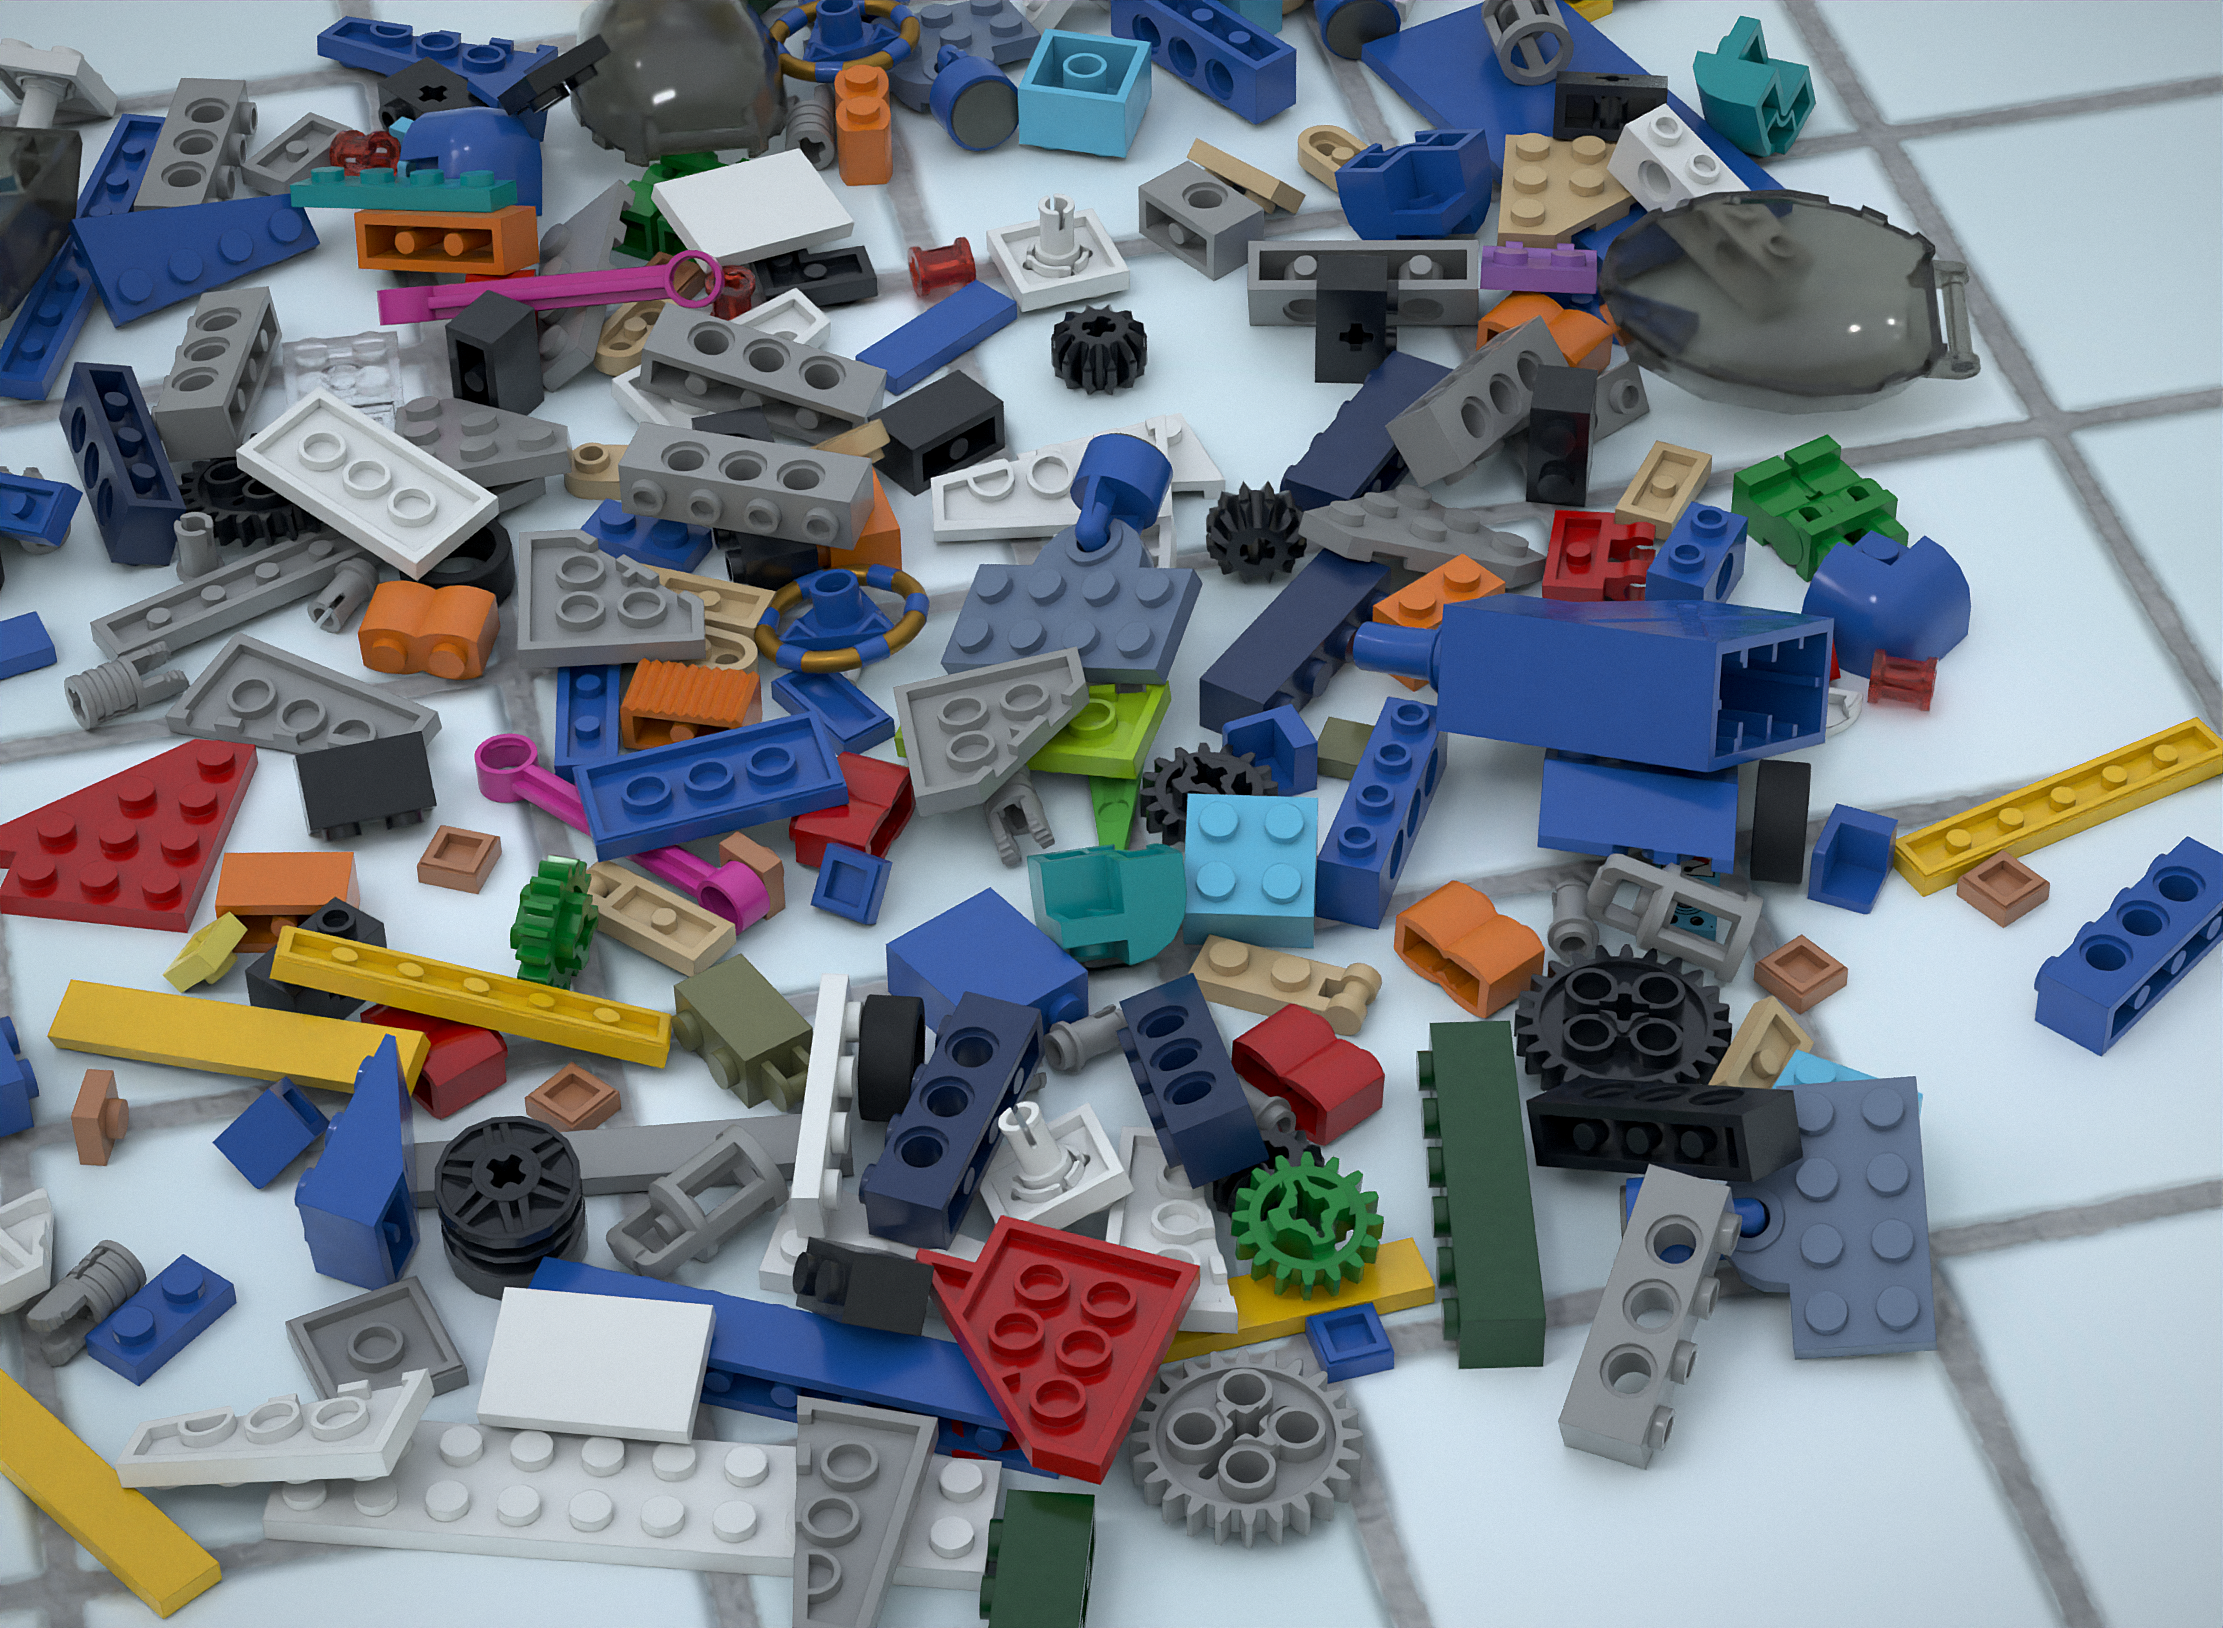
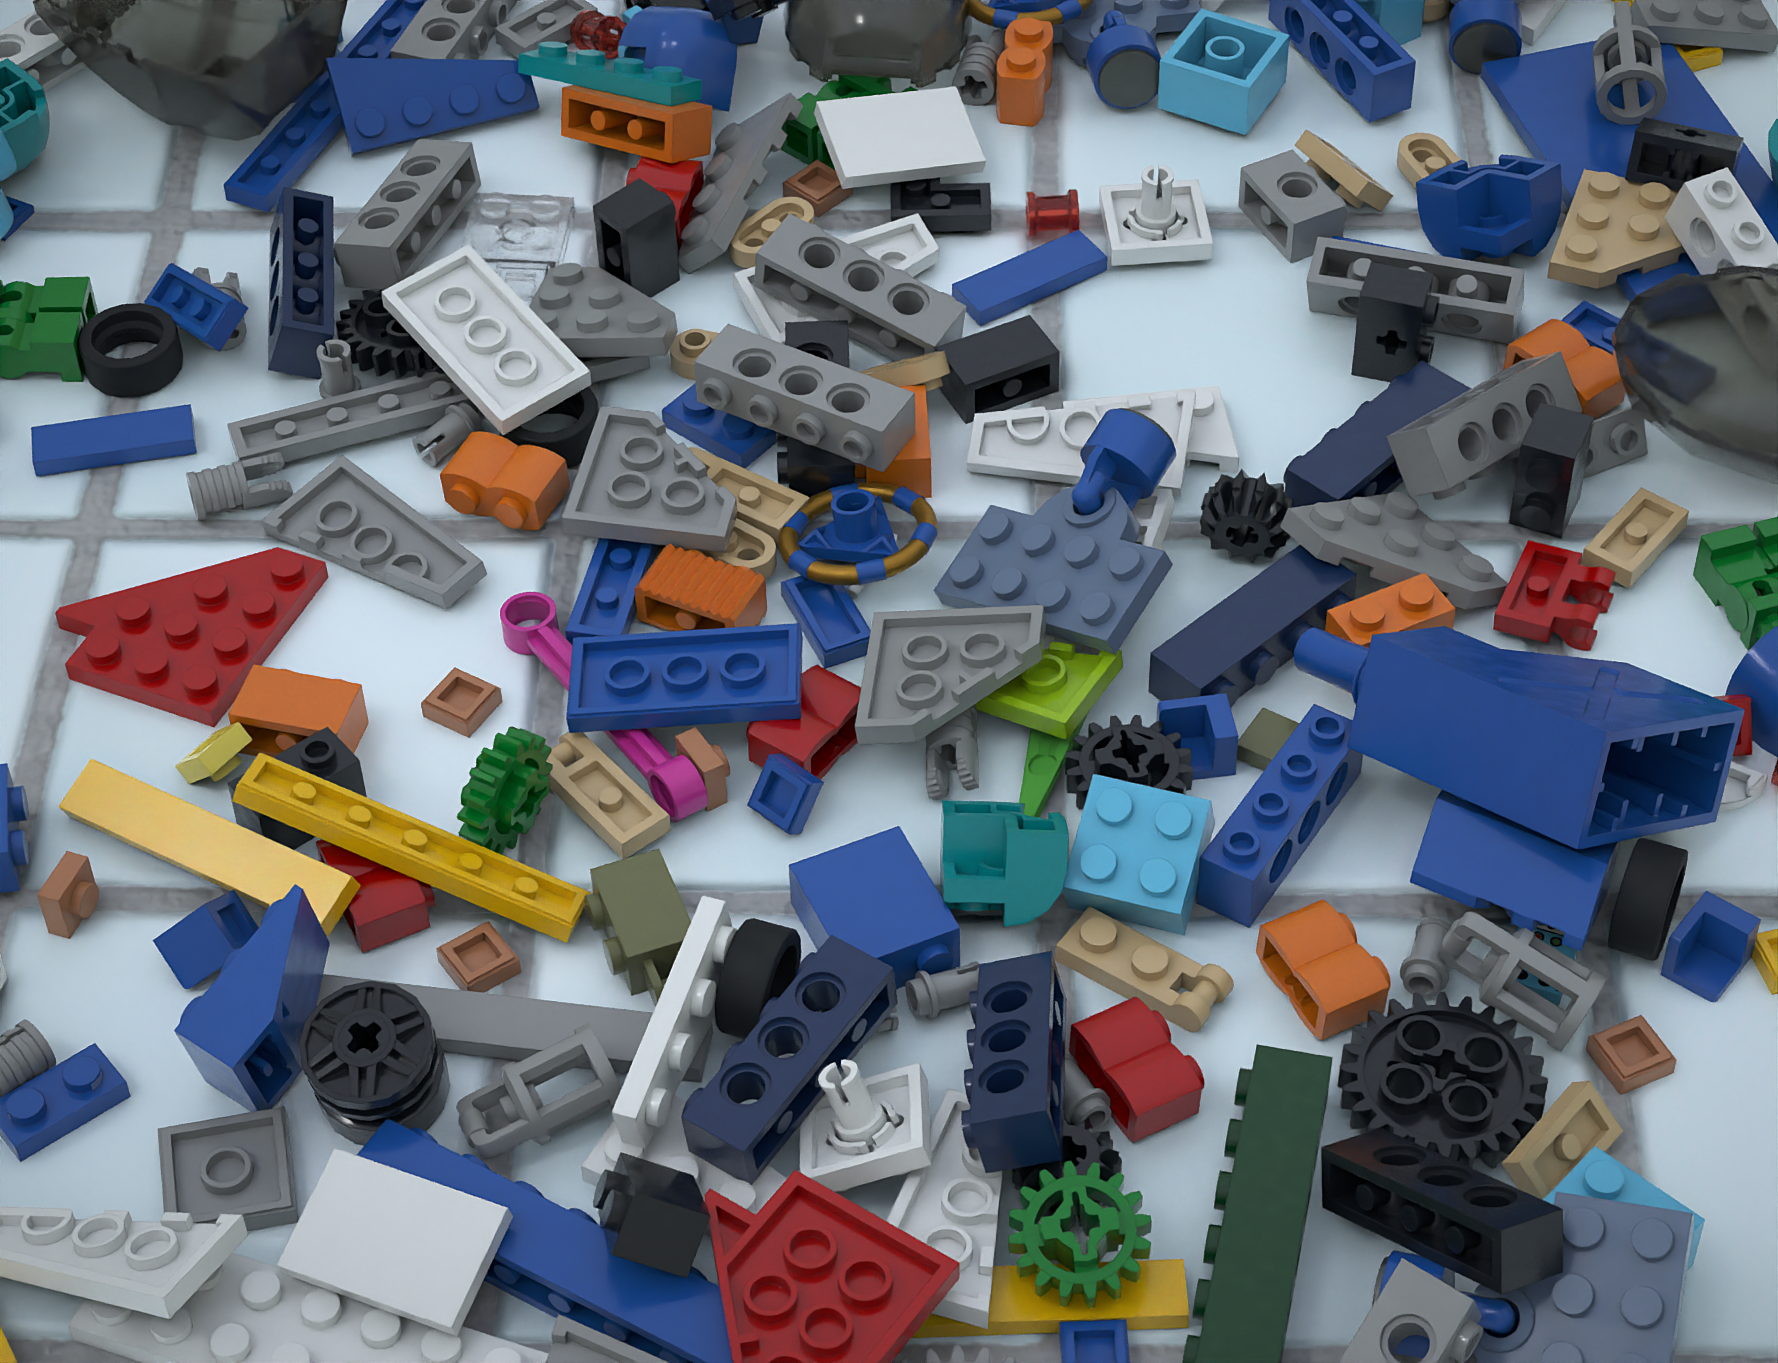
camera: 15 degrees right, 5 degrees up
(365, 785) = (396, 620): black brick -> none
(547, 291) = (703, 186): dark pink piece -> none
(736, 293) = (859, 208): clear red bush -> none
(1099, 349) = (1164, 314): black gear -> none
(1539, 268) = (1574, 302): medium lavender plate -> none
(1700, 557) = (1644, 618): blue brick -> none

